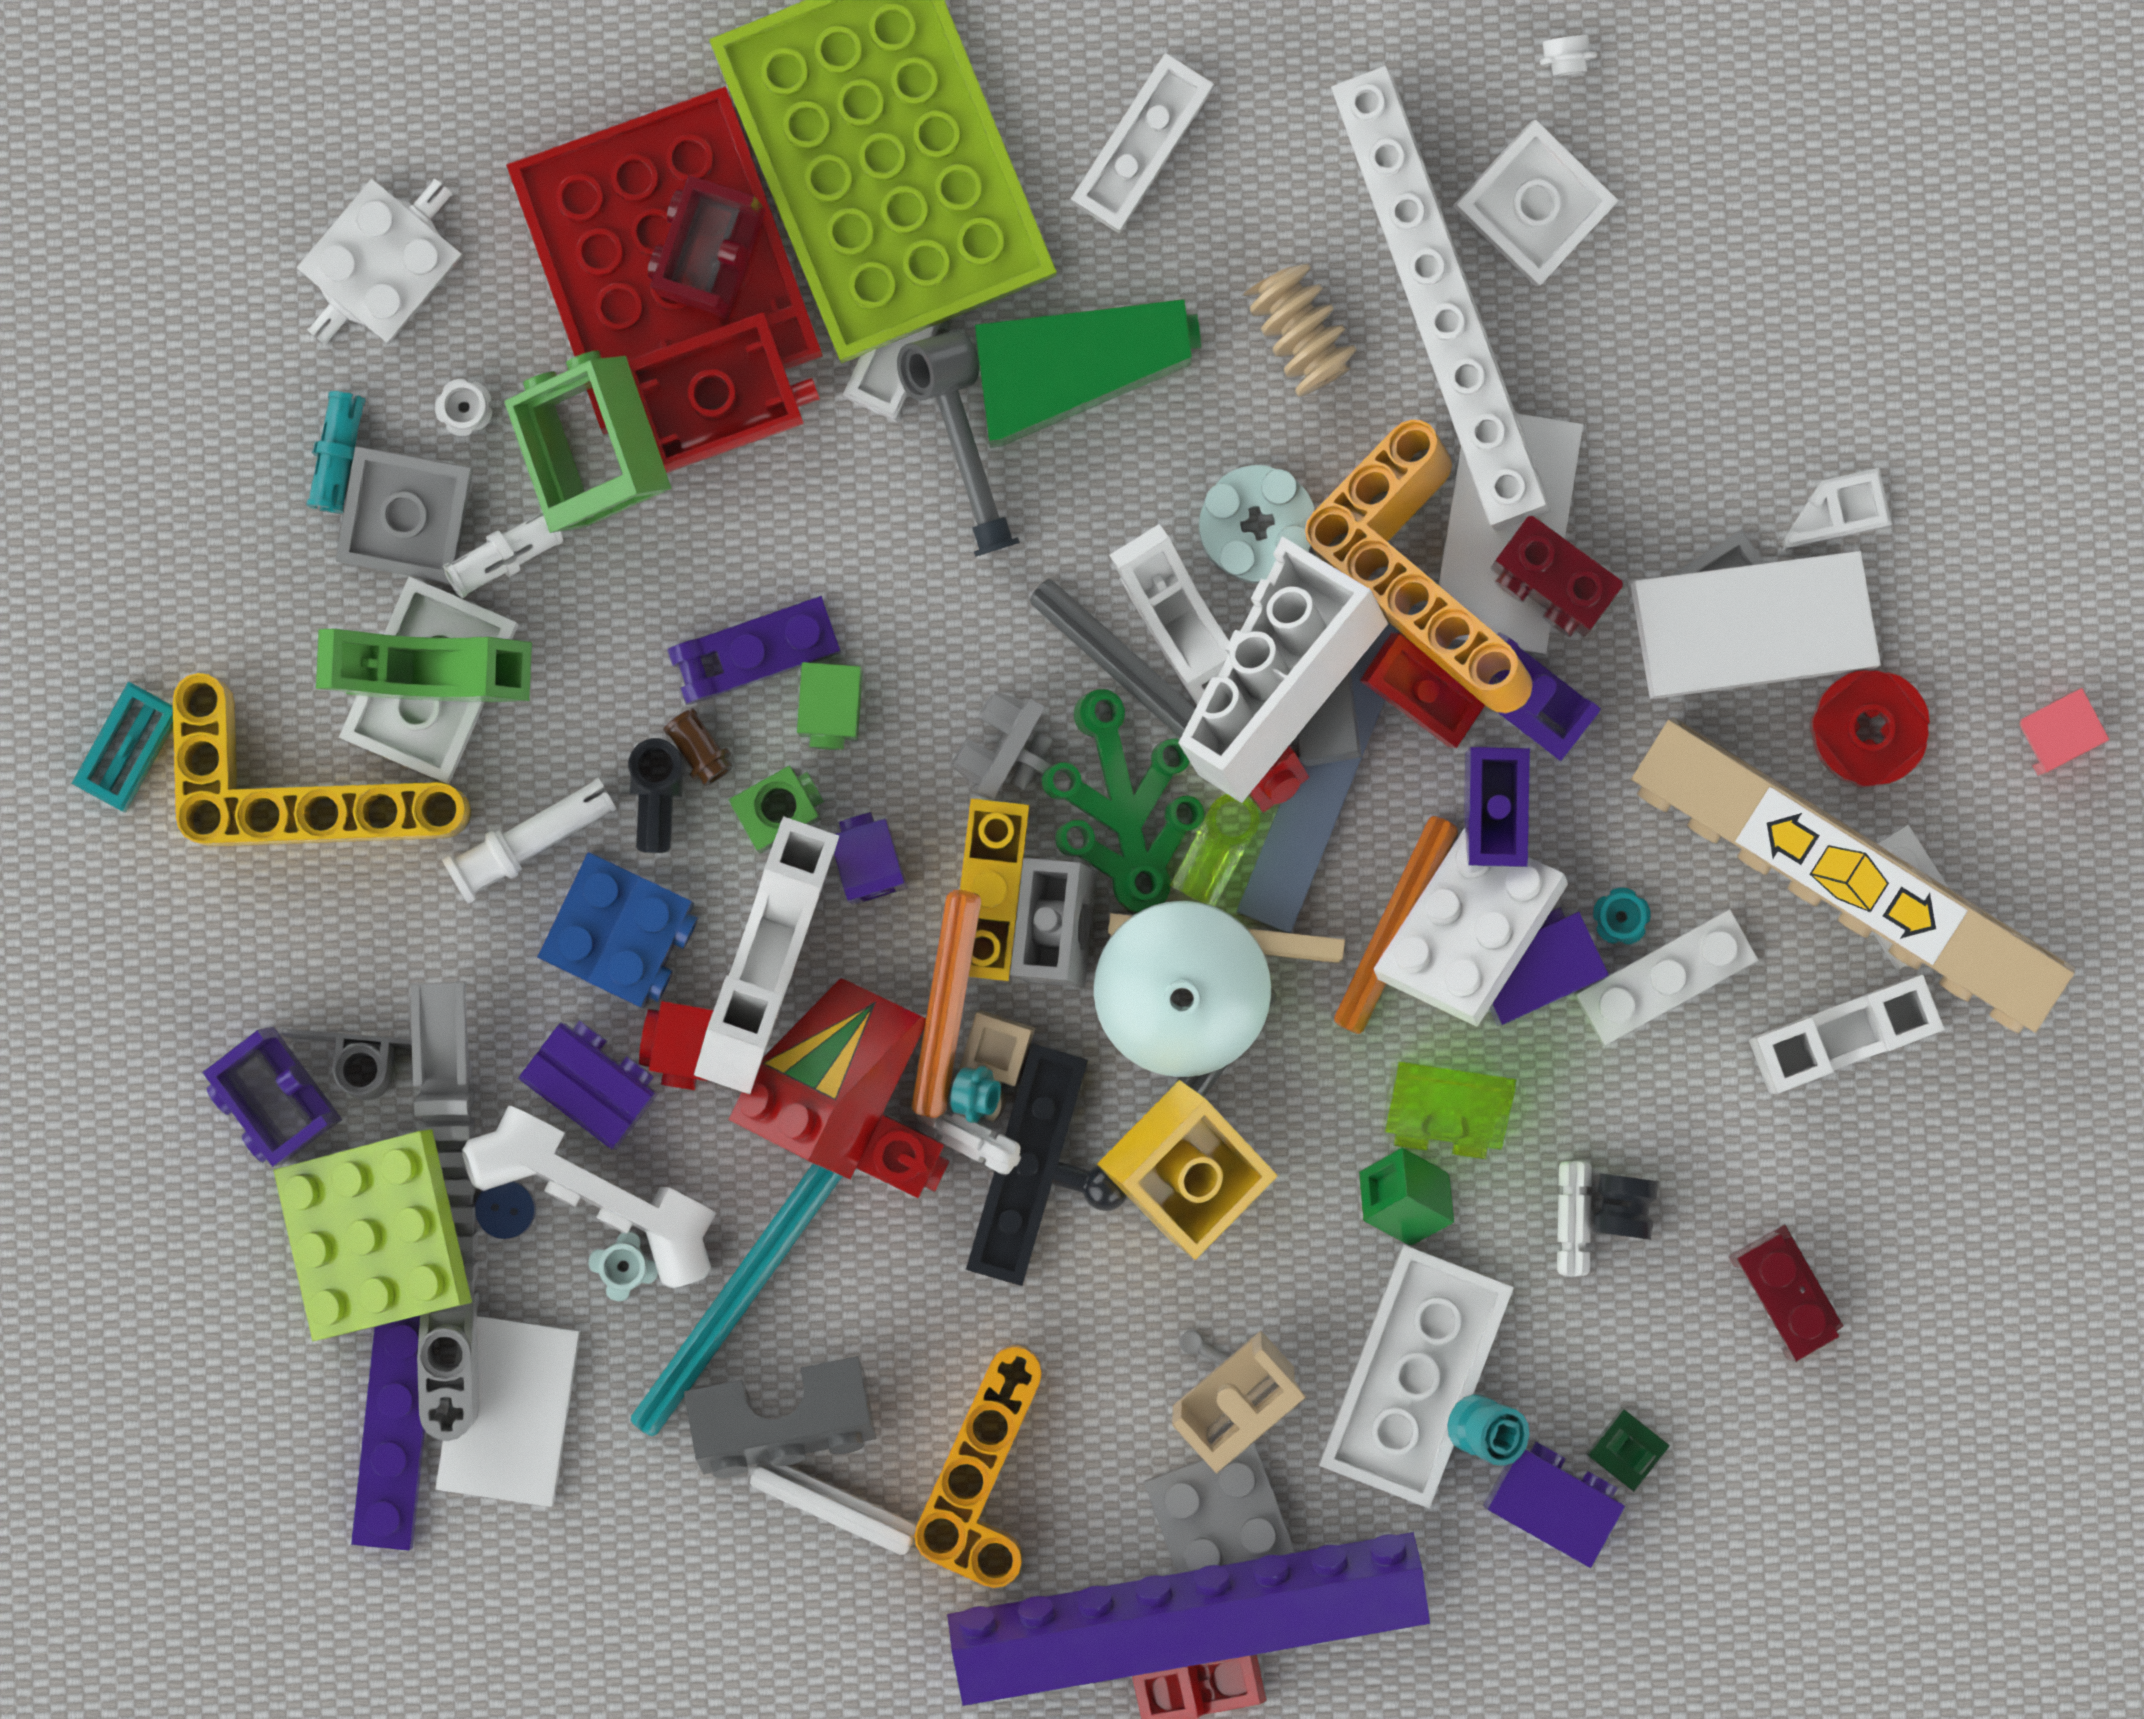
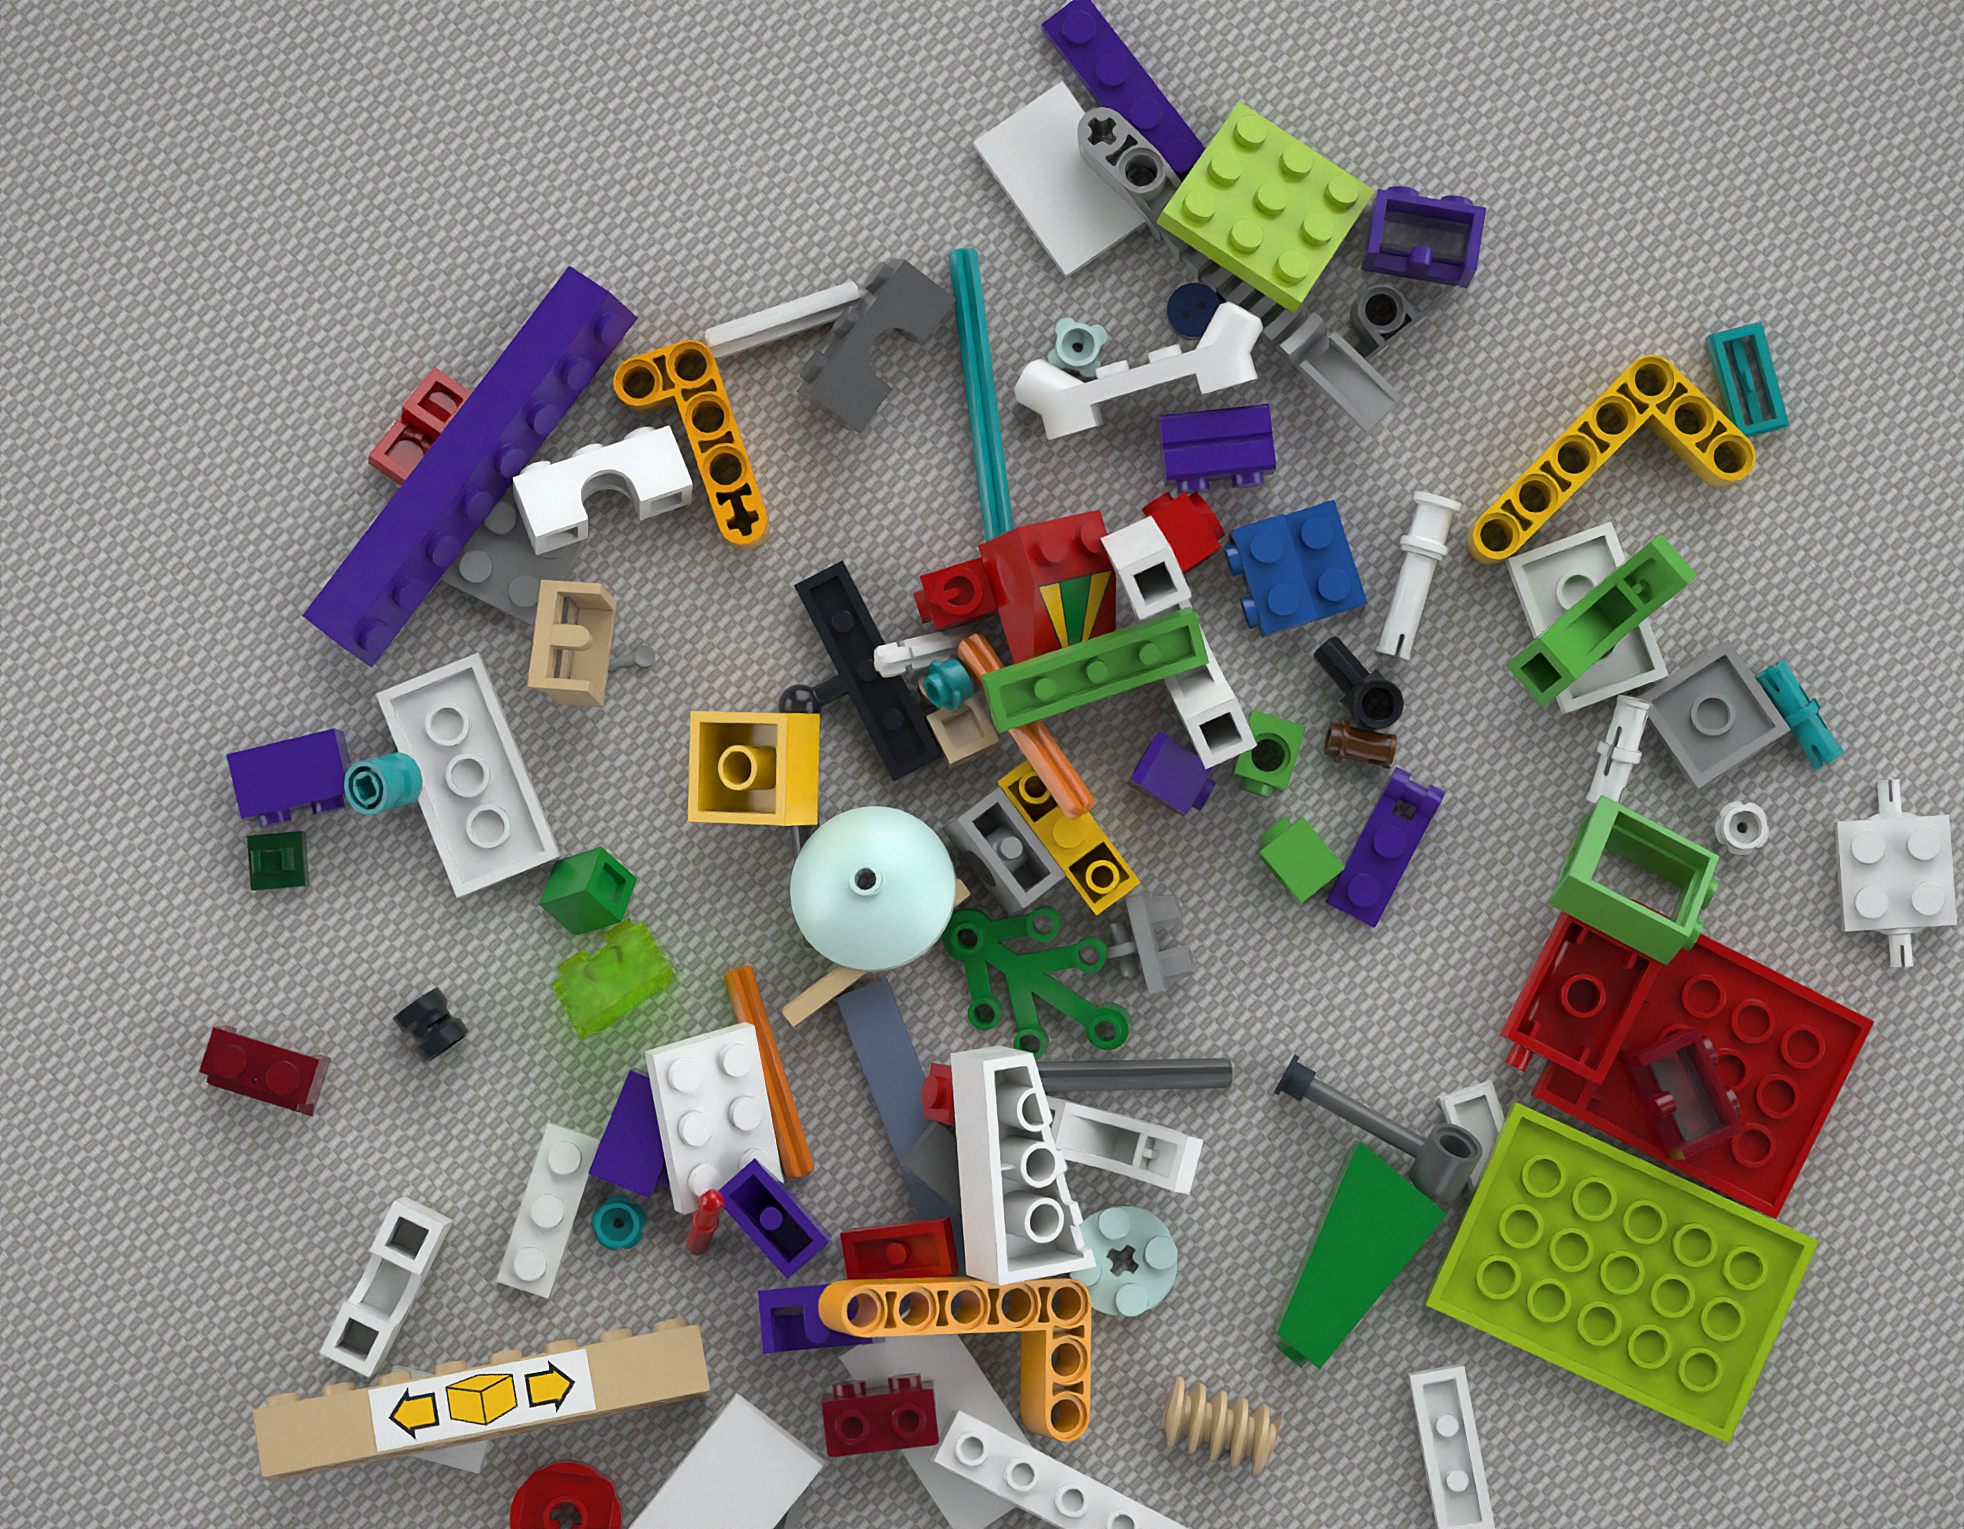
camera: 135 degrees right, 0 degrees up
(851, 995) = (1094, 669): none -> bright green plate
(1054, 1490) = (642, 467): none -> white arch
(1213, 855) = (937, 1001): clear neon green piece -> none
(1552, 852) = (705, 1221): none -> red piece
(1574, 1218) = (459, 984): white axle -> none

